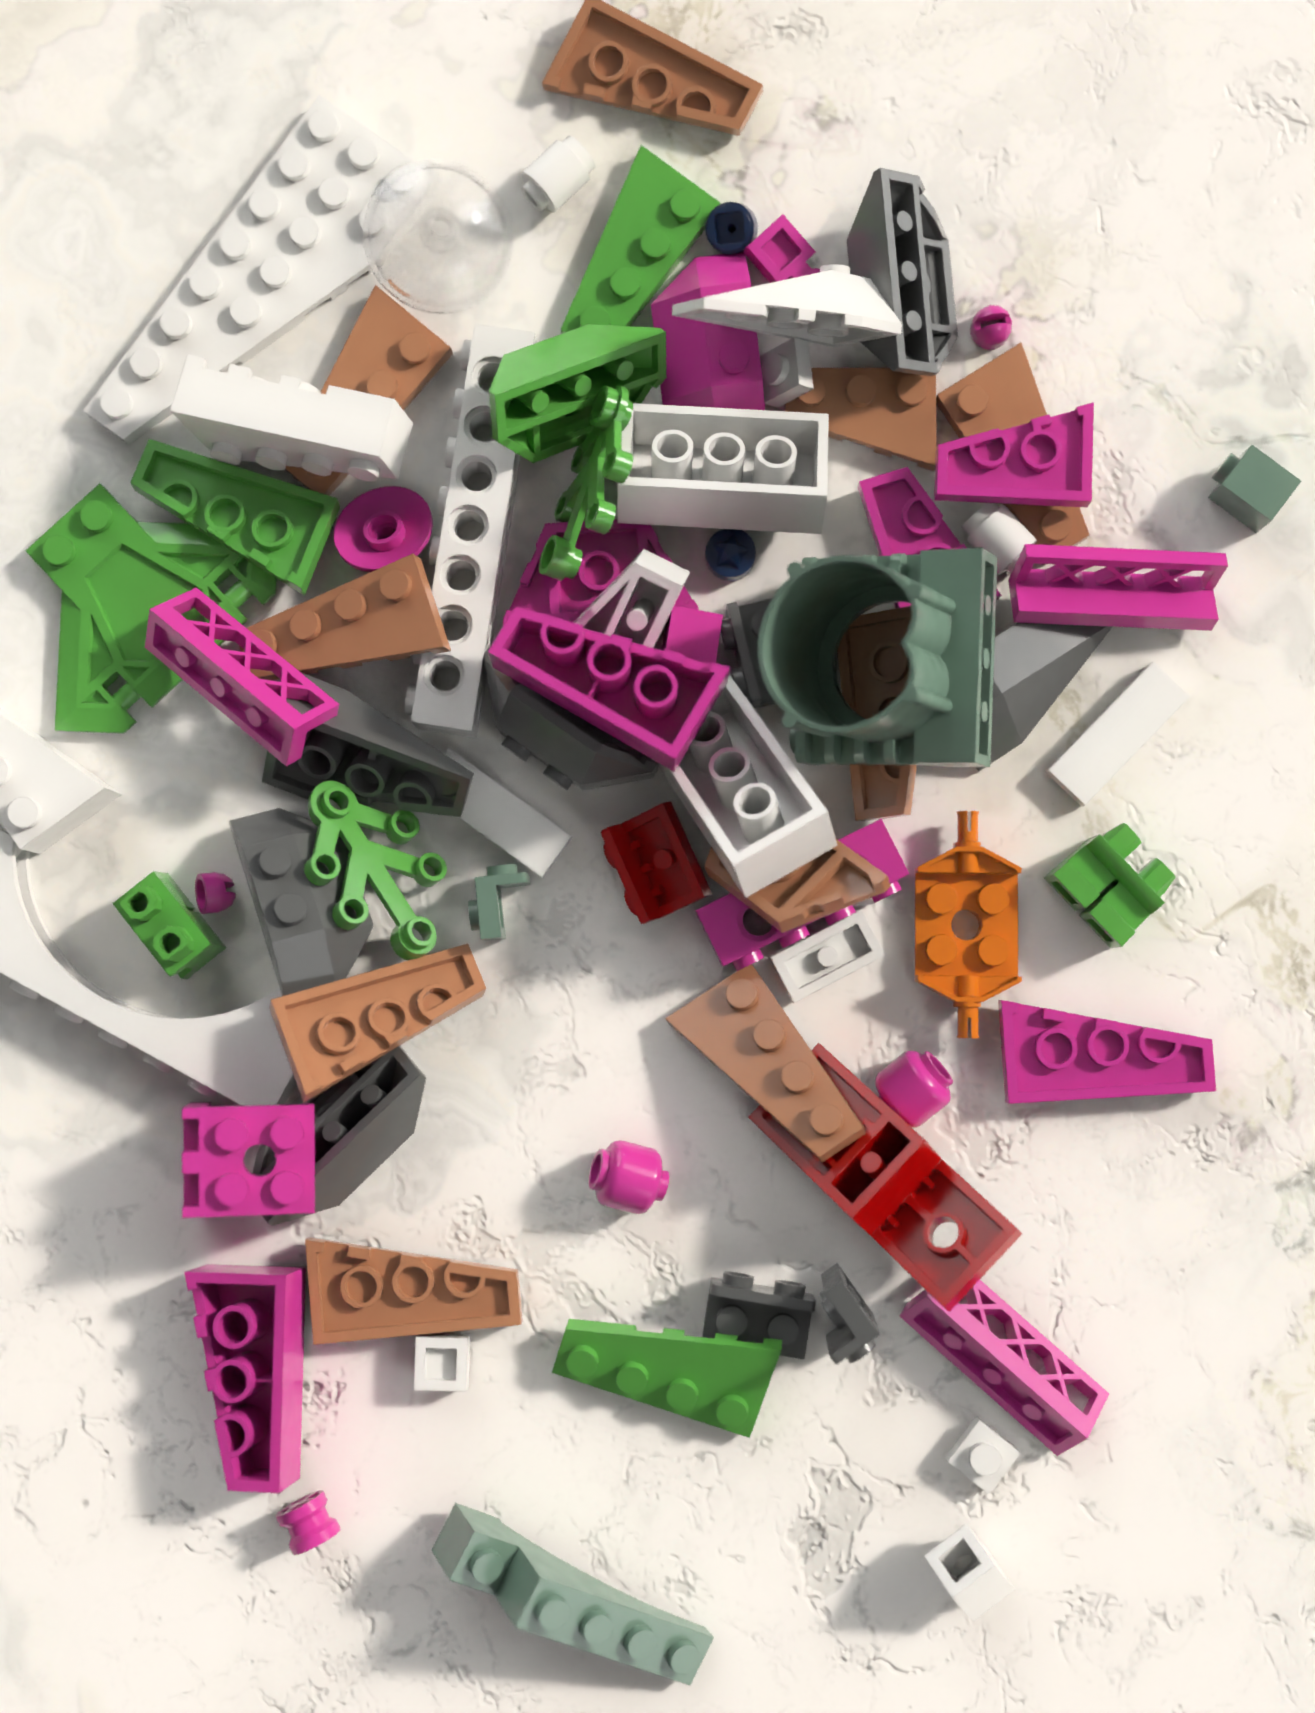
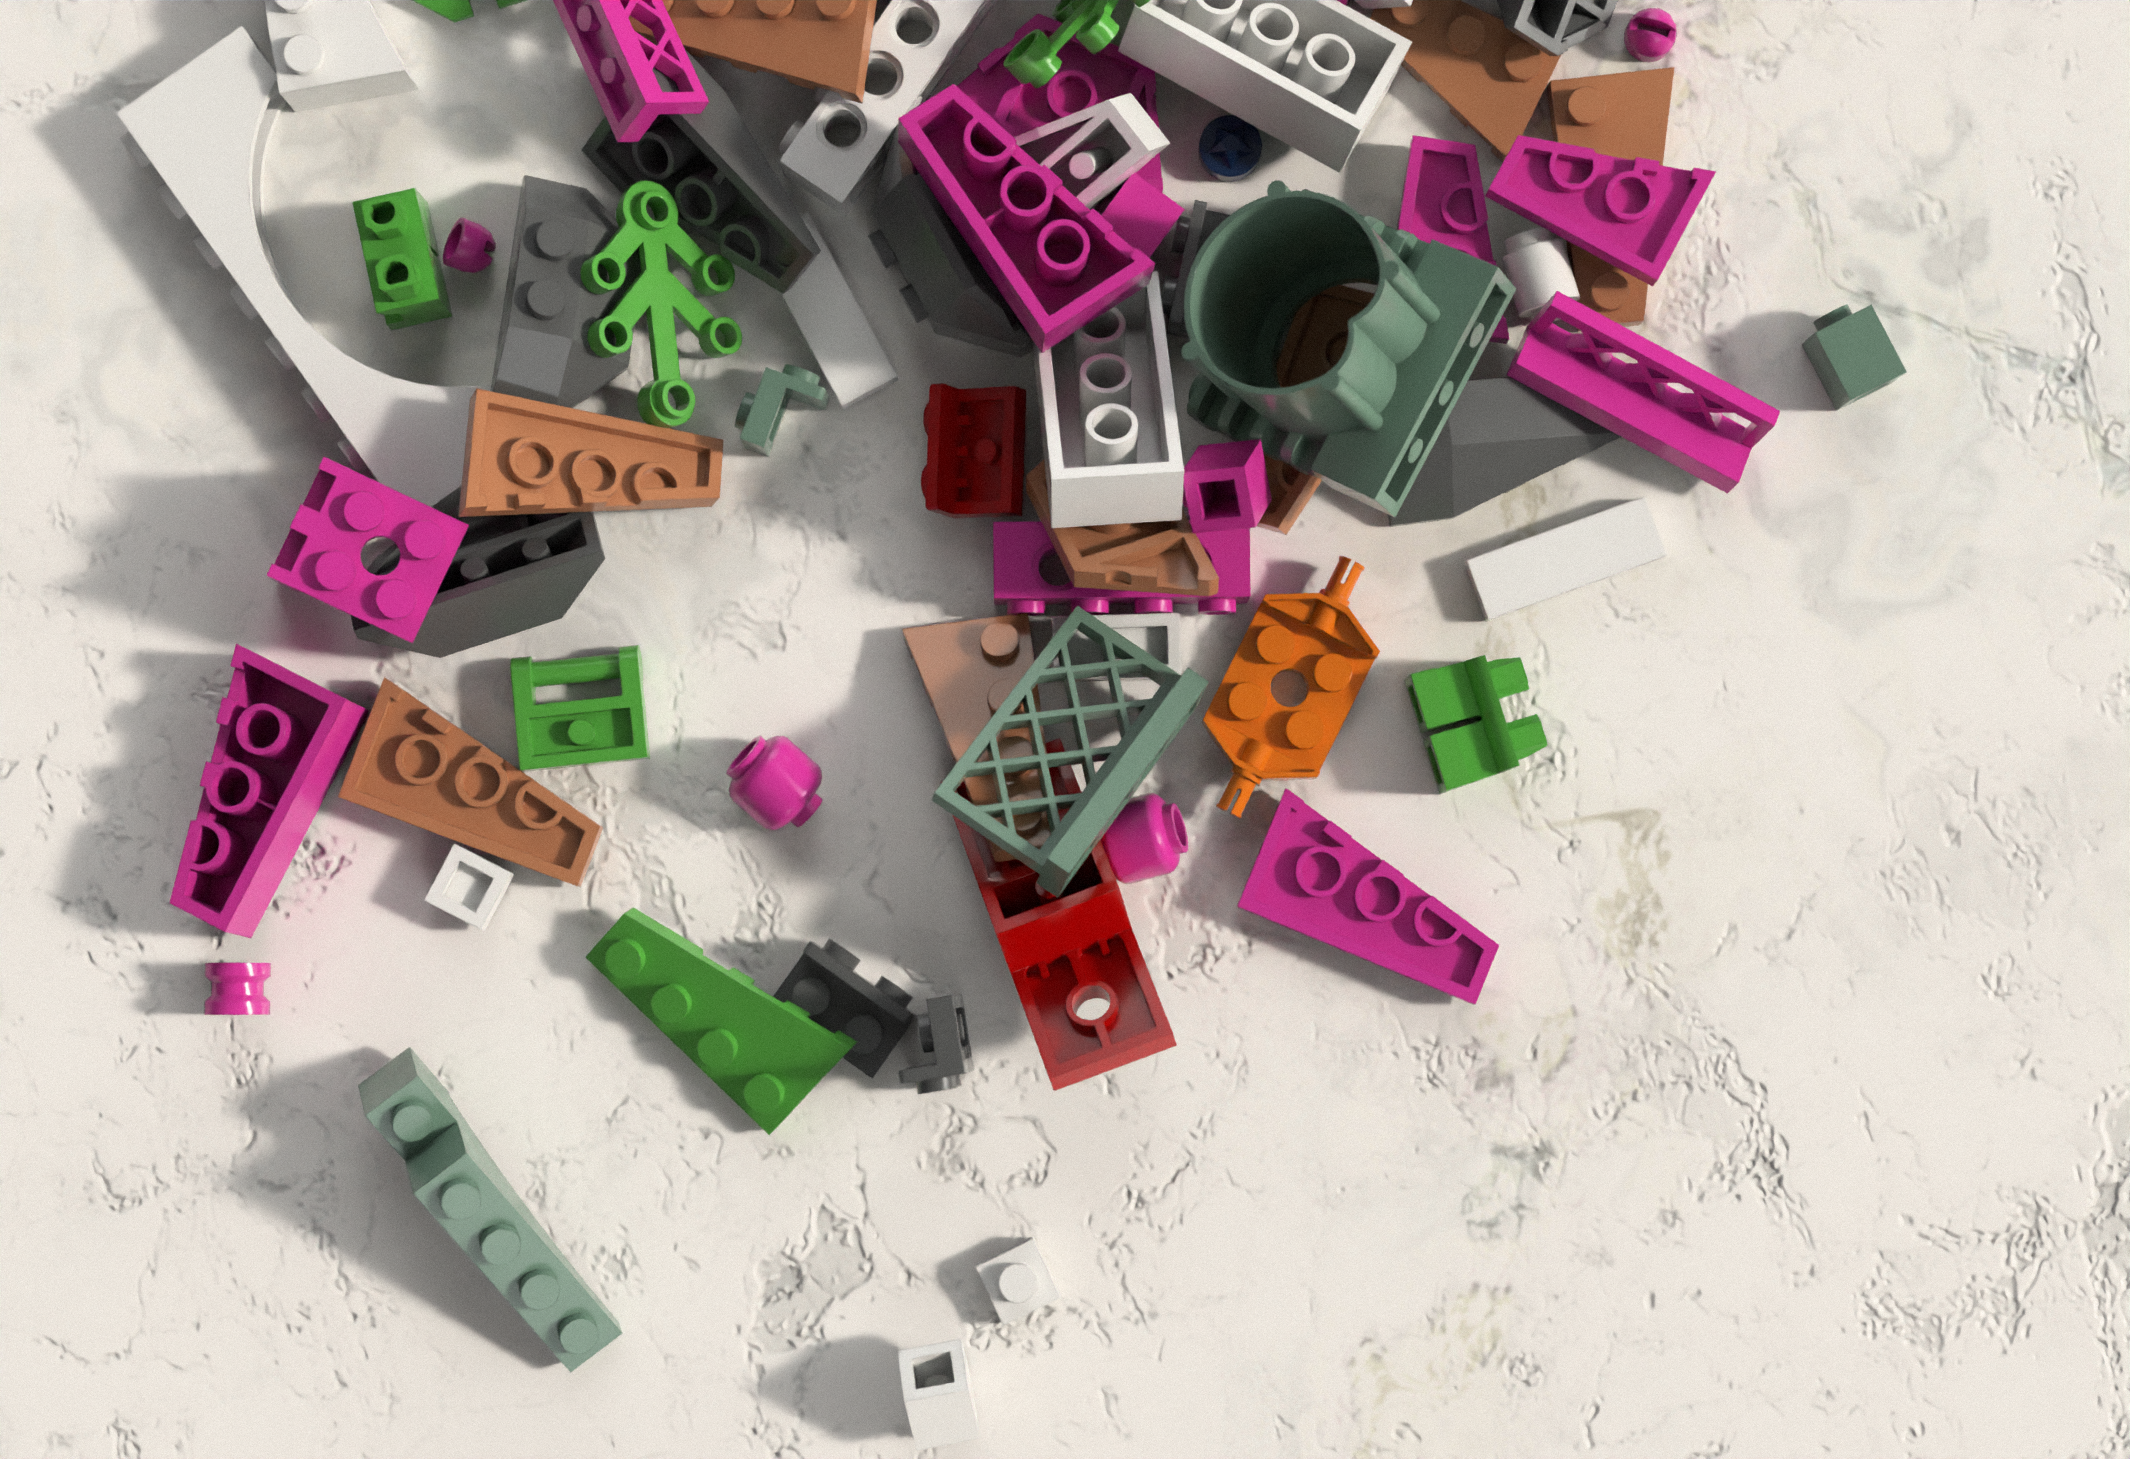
camera: 15 degrees right, 0 degrees up
(466, 1207) = (580, 729): none -> bright green plate
(857, 804) = (1226, 486): none -> dark pink brick
(881, 1060) = (1105, 791): none -> sand green fence
(1003, 1367) = (1087, 1191): dark pink fence -> none

